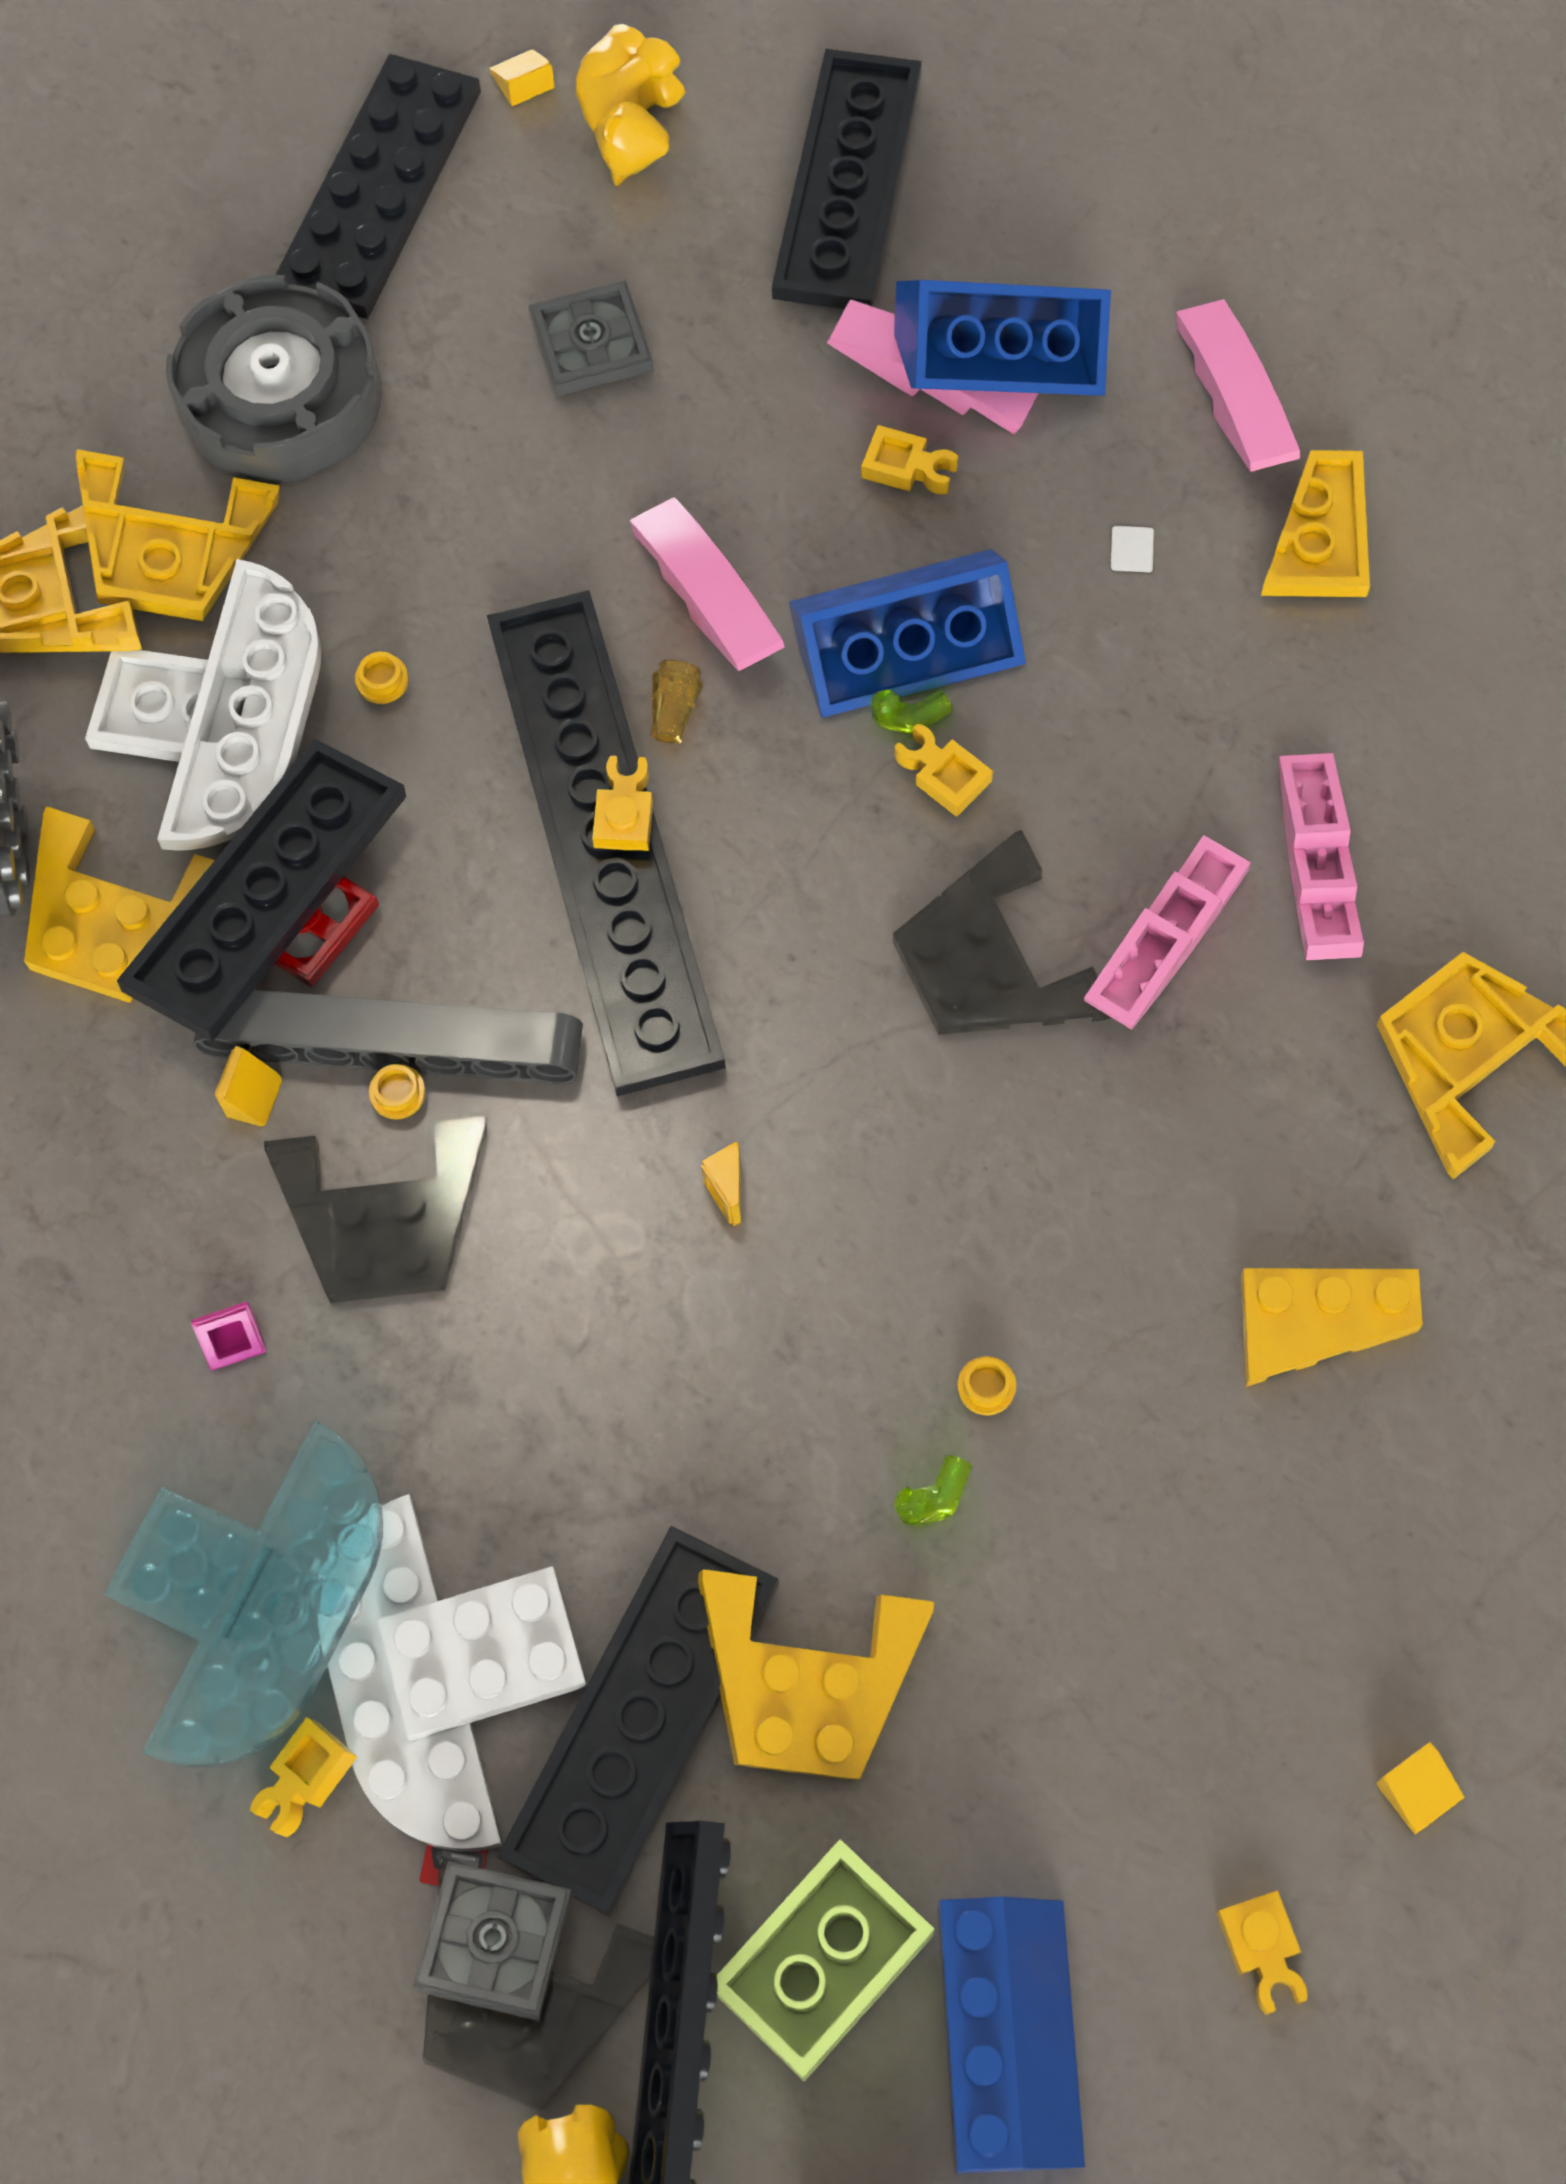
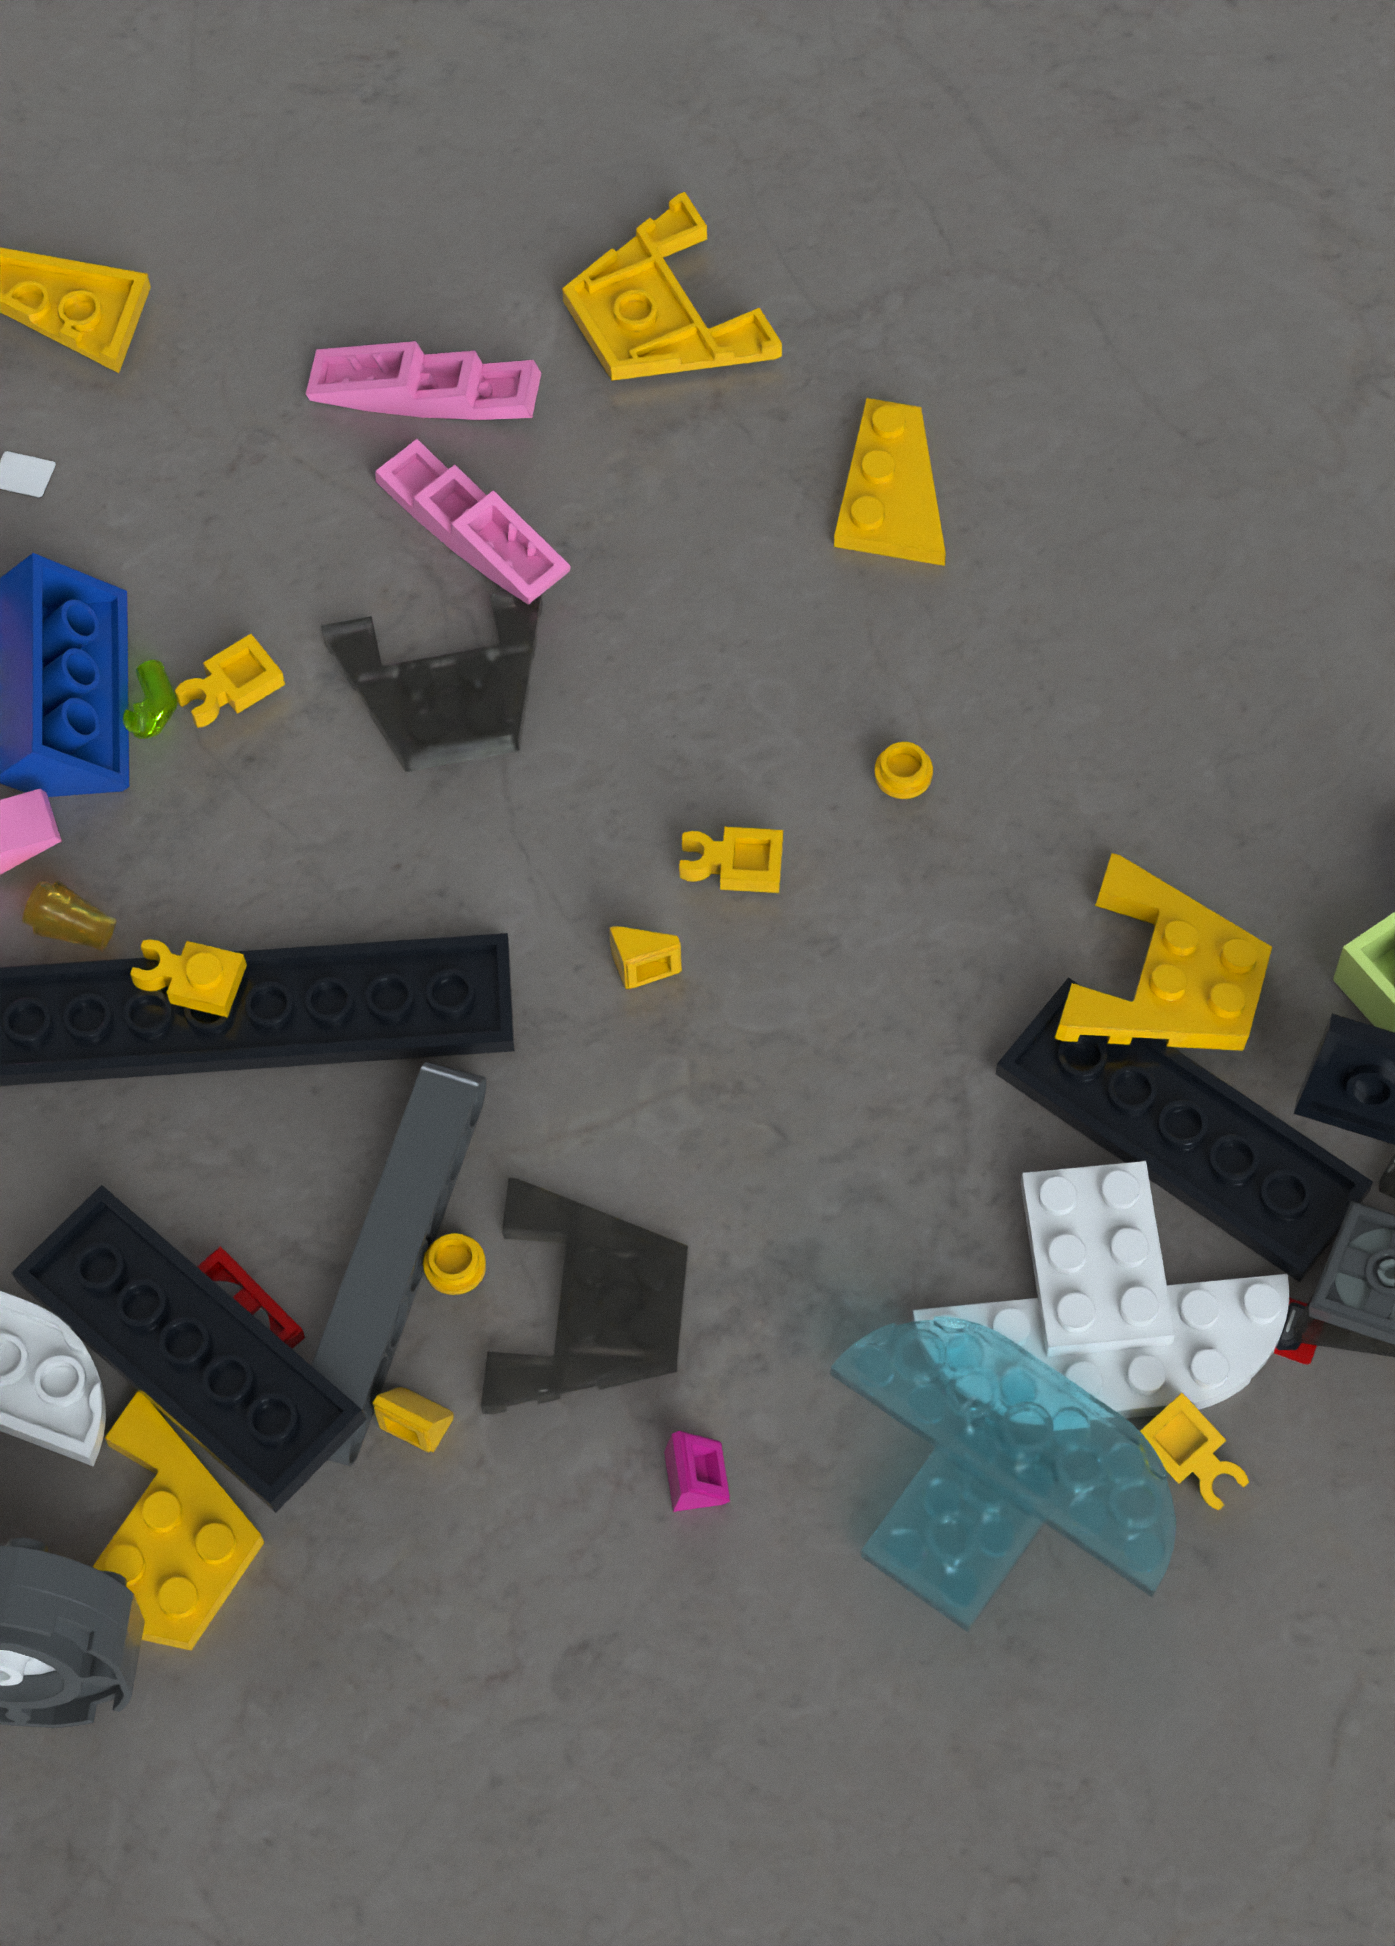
camera: 80 degrees left, 5 degrees down
(851, 1254) = (744, 859): none -> yellow plate
(935, 1501) = (1009, 832): clear neon green arm -> none
(1421, 1788) = (1343, 508): yellow slope -> none

